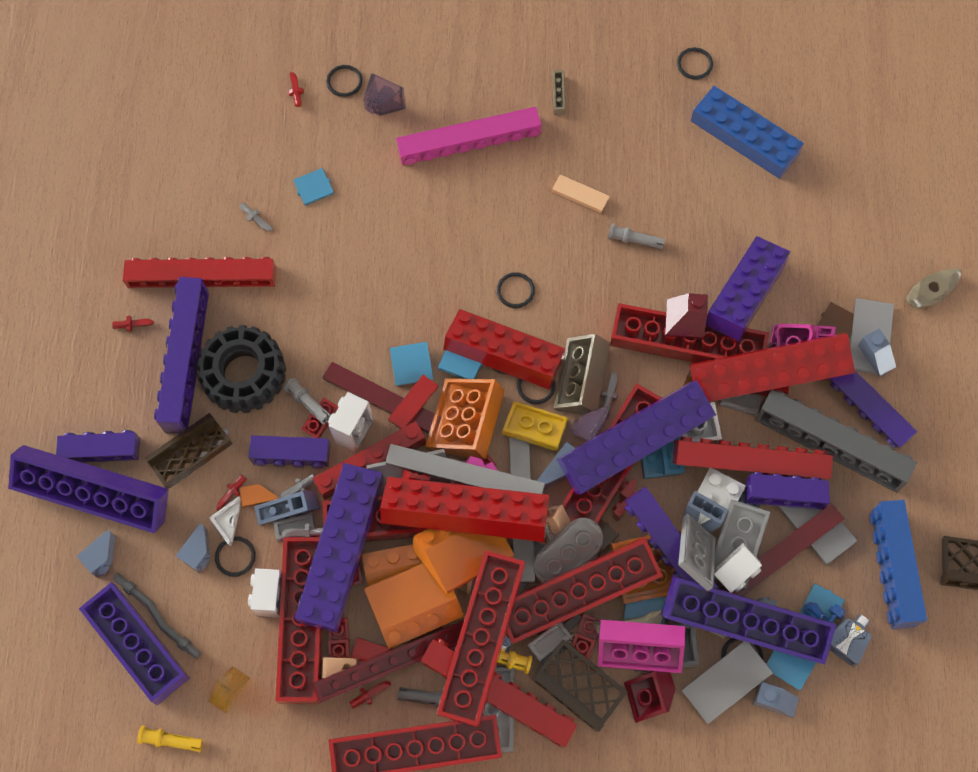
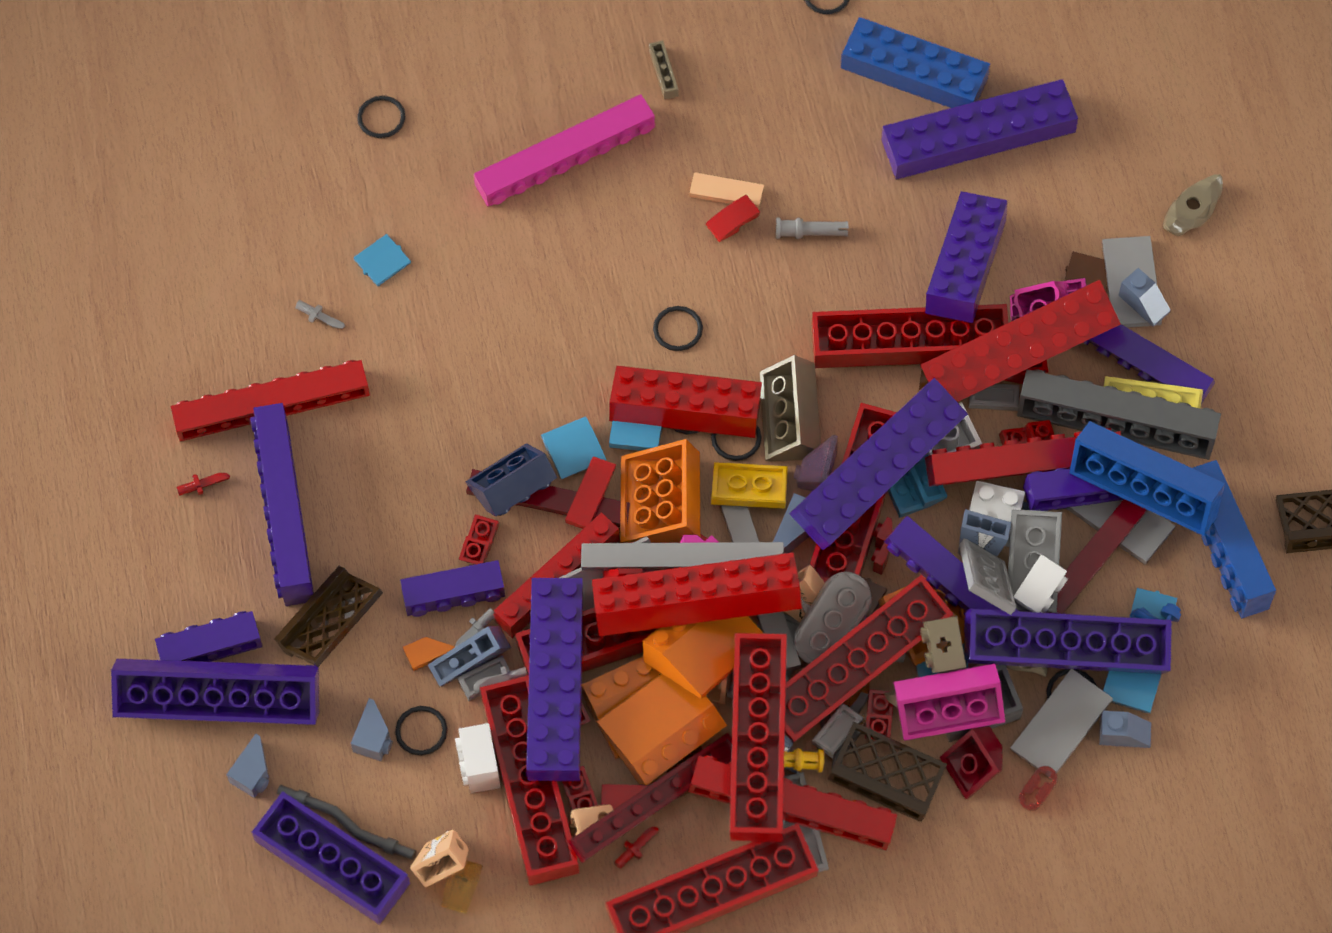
camera: 15 degrees left, 5 degrees down
(215, 666) = (447, 854): none -> light nougat torso
(226, 520) = (398, 690): white tile -> none
(229, 346) = (358, 471): black tyre -> none
(233, 489) = (394, 652): red piece -> none
(295, 91) = (323, 145): red piece -> none
(302, 396) = (448, 518): light grey pin -> none
(351, 421) = (522, 532): white brick -> none
(357, 377) = (512, 479): none -> dark blue slope
(383, 96) = (441, 125): slope -> none
(419, 696) = (702, 833): dark grey pin -> none
(578, 215) = (732, 218): none -> red slope
(609, 395) = (830, 427): light grey piece -> none
(653, 610) = (953, 654): none -> dark tan brick
(686, 316) = (901, 307): dark red slope -> none
(698, 734) = (1043, 792): none -> clear red beam
(766, 437) = (1032, 429): none -> red slope
(783, 191) = (979, 129): none -> dark purple brick
(845, 503) = (1146, 478): none -> blue brick
(851, 640) = (1194, 640): sand blue torso -> none
(866, 428) = (1150, 389): none -> light yellow tile

